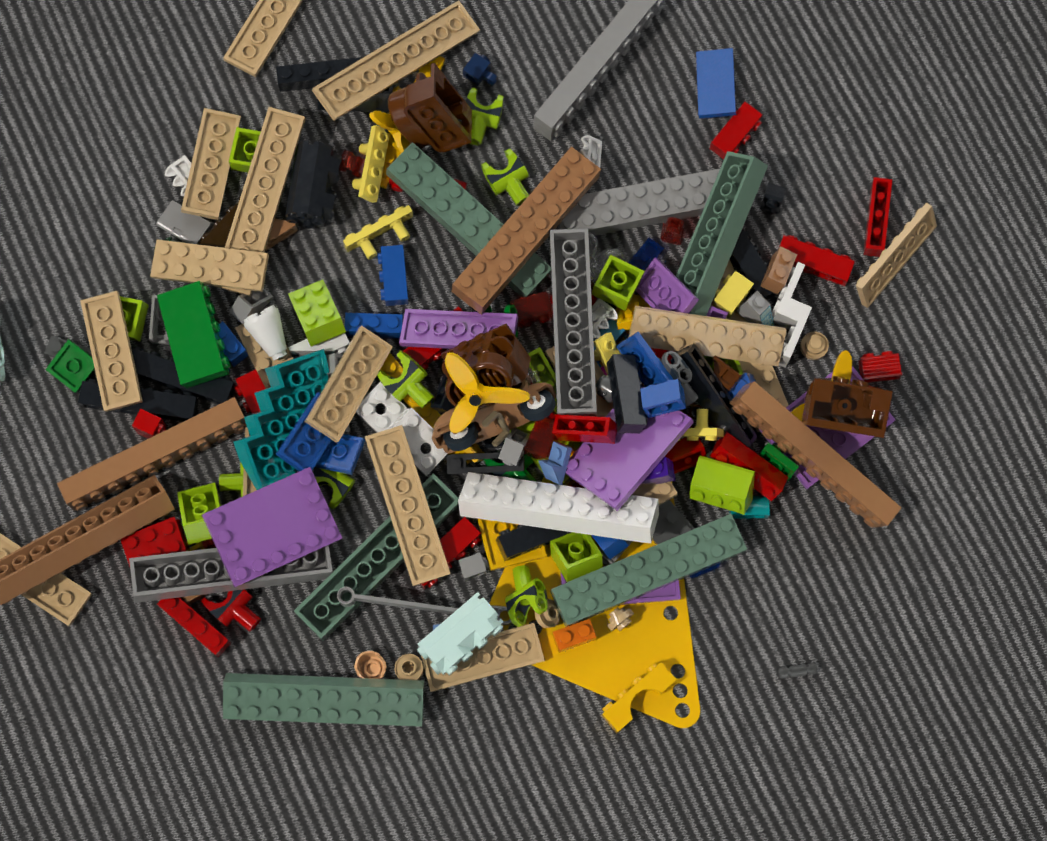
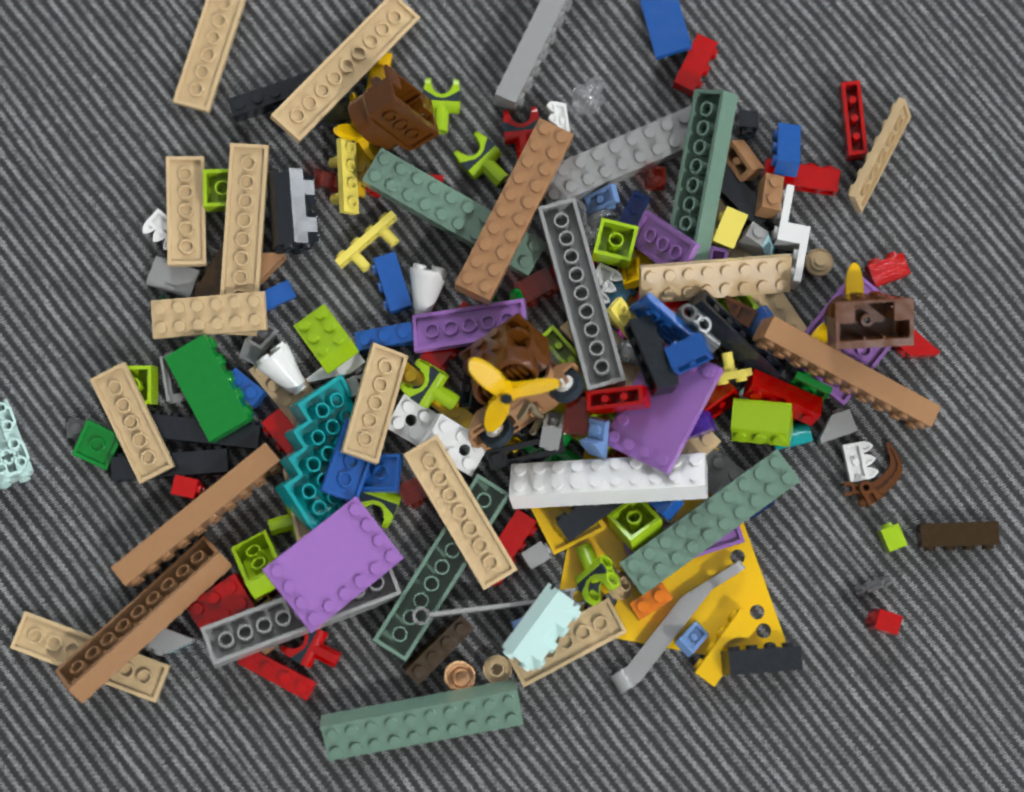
camera: 10 degrees left, 5 degrees up
(96, 570) = (169, 641): none -> light grey slope
(281, 262) = (279, 295): none -> blue slope
(355, 634) = (437, 648): none -> dark brown brick
(366, 480) = (413, 493): none -> clear red brick
(425, 285) = (426, 286): none -> white cone
(478, 70) = (427, 58): dark blue brick -> none
(547, 158) = (516, 132): none -> red connector
(586, 667) = (668, 629): none -> light grey piece
(606, 681) = (691, 639): none -> medium blue slope
(616, 239) = (602, 199): none -> medium blue slope
(619, 619) = (691, 575): tan plate -> none
(624, 139) = (588, 97): none -> clear hair
(670, 716) = (761, 660): none -> black brick
(761, 231) = (743, 161): none -> medium nougat brick
(798, 507) = (837, 426): none -> light grey slope
(799, 706) = (884, 621): none -> red brick
(805, 229) = (786, 149): none -> blue brick
(809, 546) = (857, 462): none -> white plate
(816, 579) = (869, 492): none -> reddish brown piece
(826, 626) = (891, 537): none -> lime brick
(891, 447) = (920, 349): none -> red slope
(892, 639) = (958, 535): none -> dark brown brick

